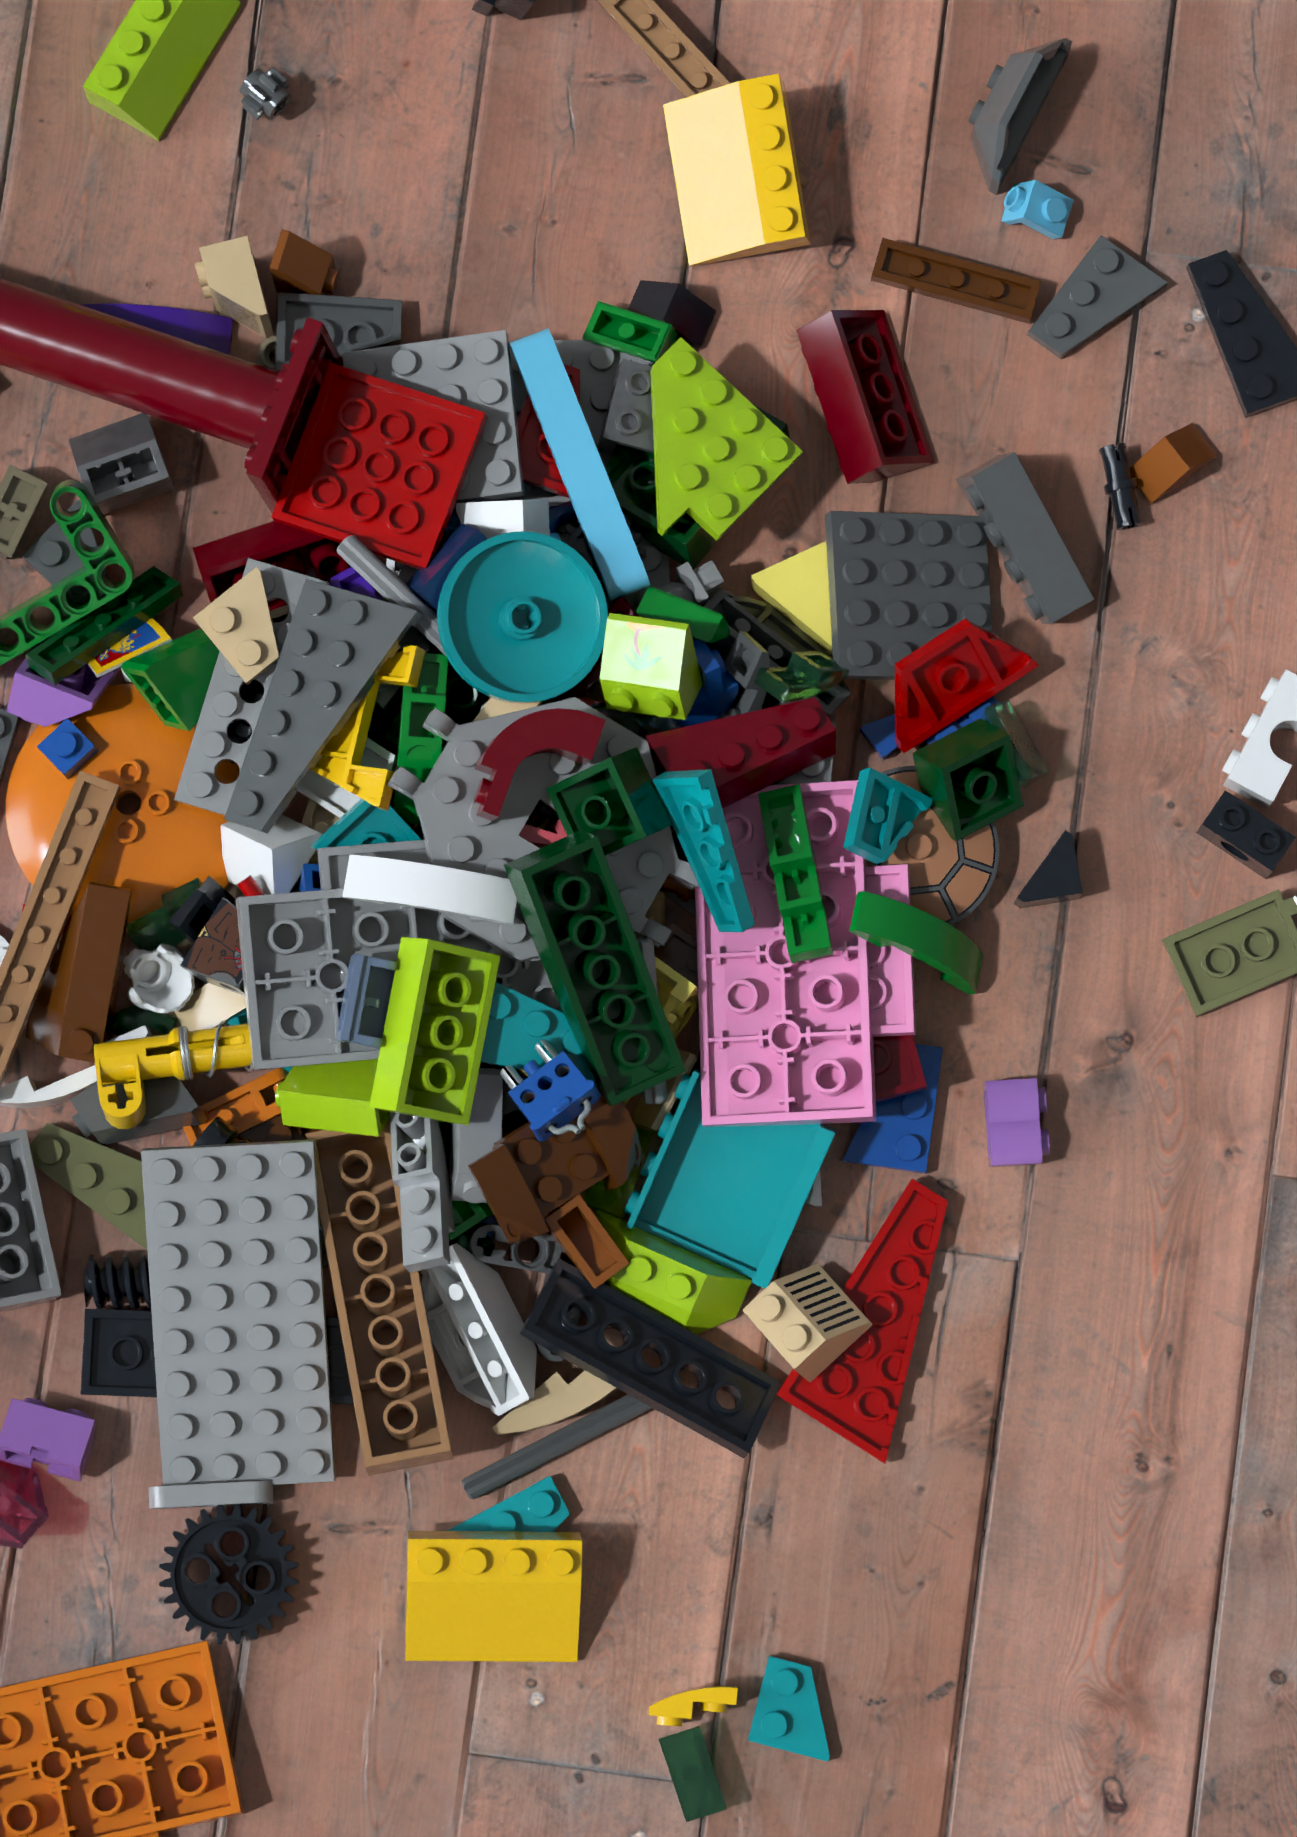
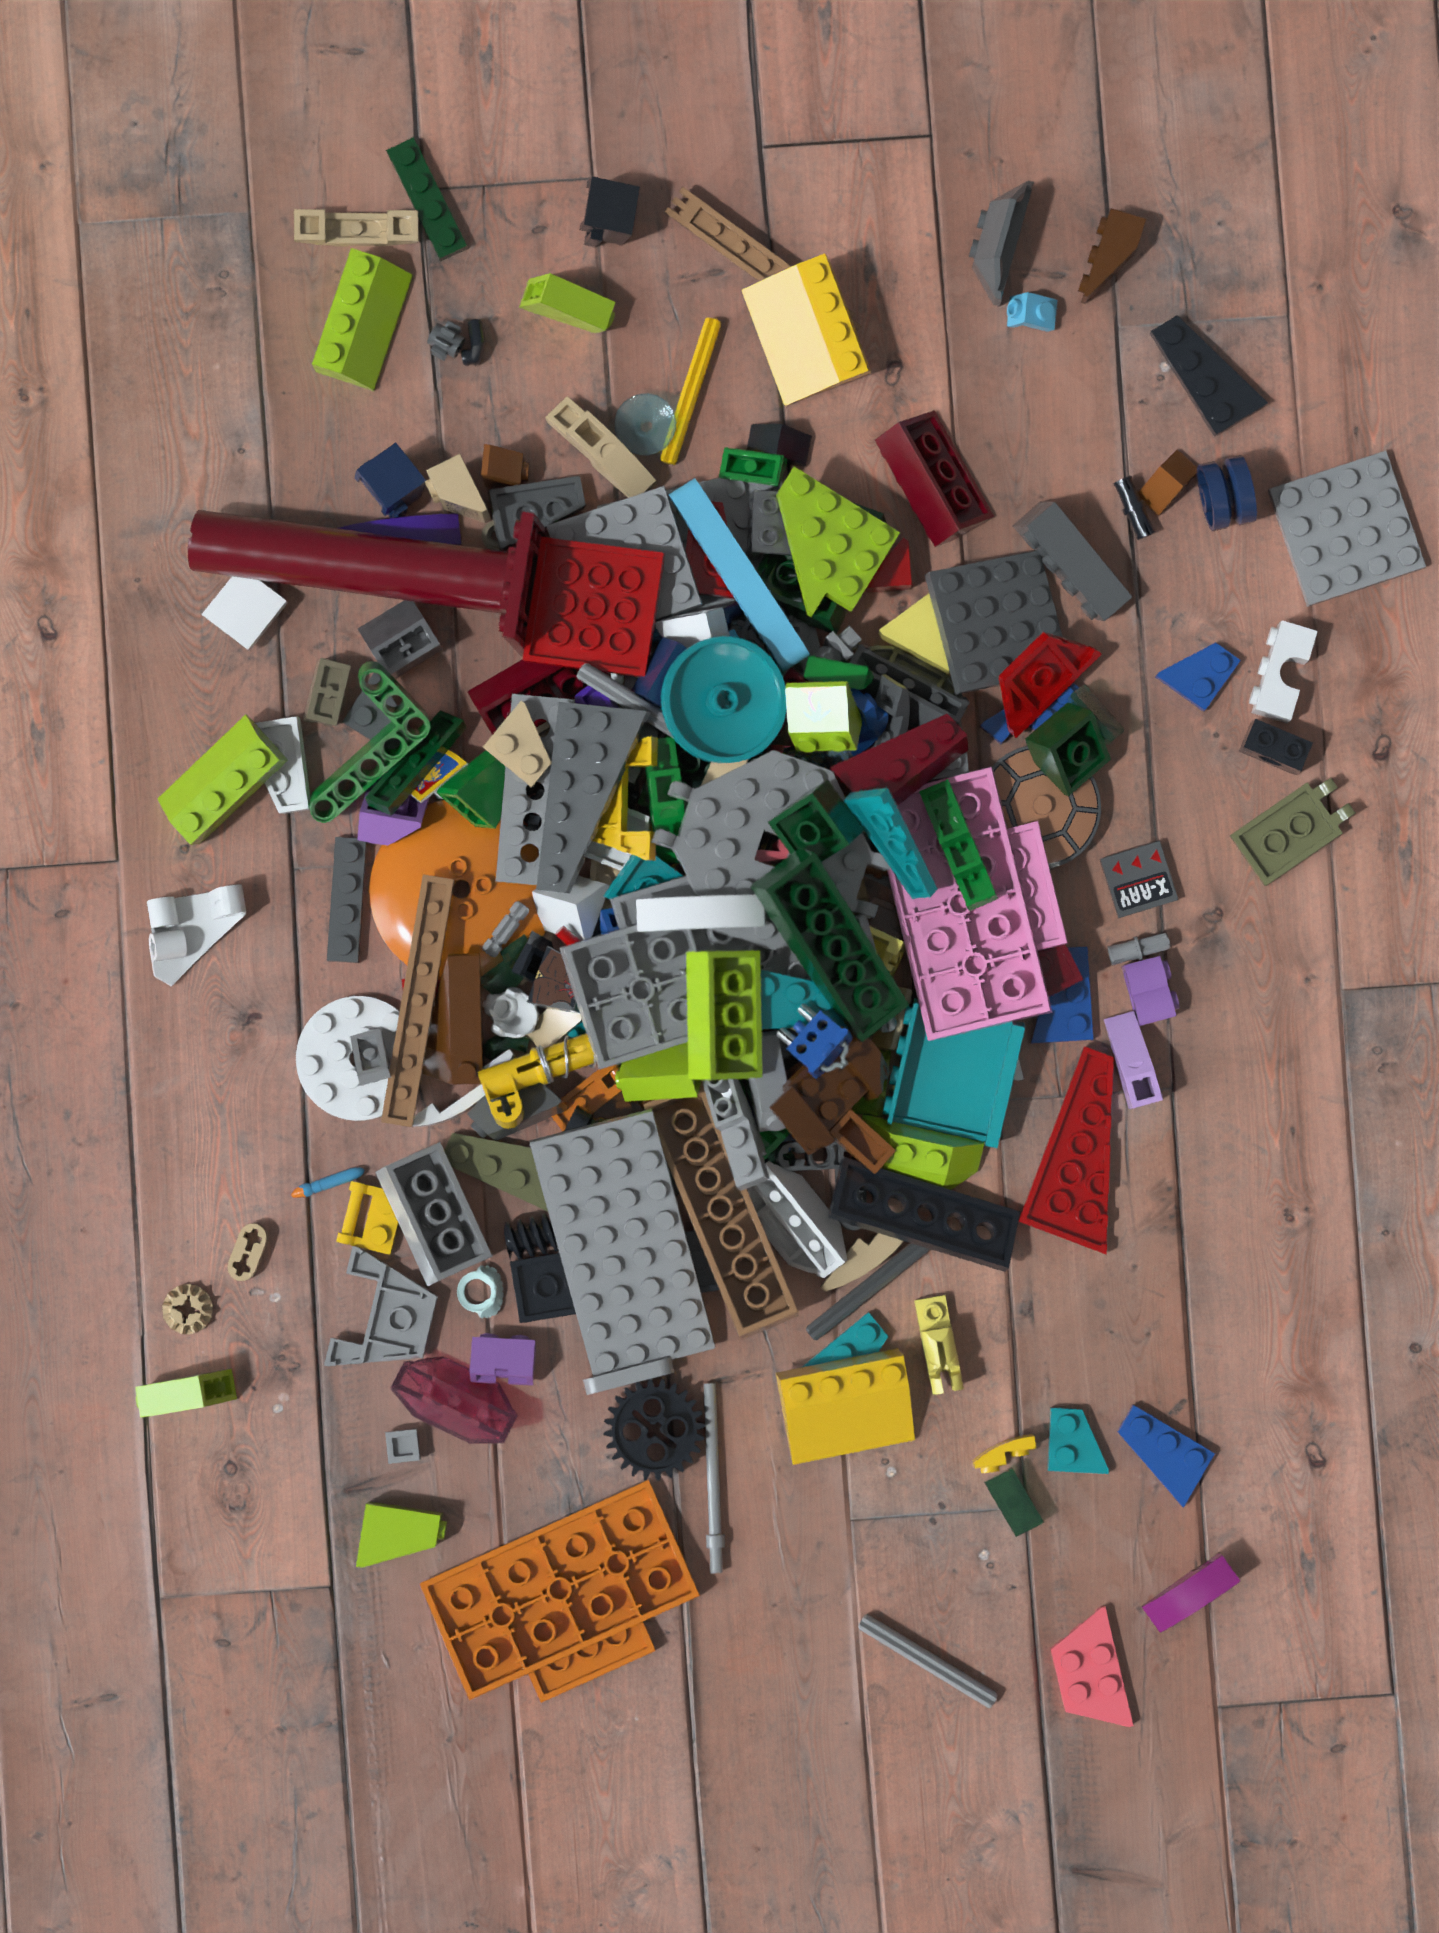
camera: 10 degrees left, 5 degrees up
(46, 1364) = (490, 1306): none -> light aqua piece
(67, 748) = (408, 858): blue plate -> none
(154, 256) = (392, 481): none -> dark blue plate
(175, 866) = (505, 929): none -> light grey axle
(280, 1741) = (715, 1539): none -> light grey bar
(306, 102) = (477, 342): none -> black arm
(365, 1001) = (669, 1003): sand blue hinge -> none
(434, 77) = (567, 303): none -> lime slope
(436, 268) = (601, 447): none -> tan slope
(494, 234) = (643, 409): none -> clear light blue dish
(550, 731) = (769, 779): dark red arch -> none
(570, 222) = (692, 388): none -> yellow axle
(635, 1535) = (938, 1342): none -> light yellow plate
(783, 506) = (894, 571): none -> red slope
(805, 676) = (935, 699): clear green slope -> none
(807, 1319) = (1031, 1163): tan slope -> none
(881, 815) = (1012, 790): teal wing -> none
(913, 1749) = (1166, 1452): none -> blue wing
(919, 935) = (1056, 871): green slope -> none
(955, 280) = (983, 378): reddish brown plate -> none
(972, 1211) = (1132, 1060): none -> lavender slope
(1008, 1063) = (1137, 948): none -> light grey axle
(1029, 973) = (1138, 879): none -> tile
(1055, 878) = (1144, 805): black slope -> none
(1094, 295) = (1087, 368): dark grey wing -> none
(1163, 149) = (1116, 247): none -> reddish brown slope
(1165, 721) = (1200, 675): none -> blue wing
(1245, 489) = (1227, 493): none -> dark blue wheel

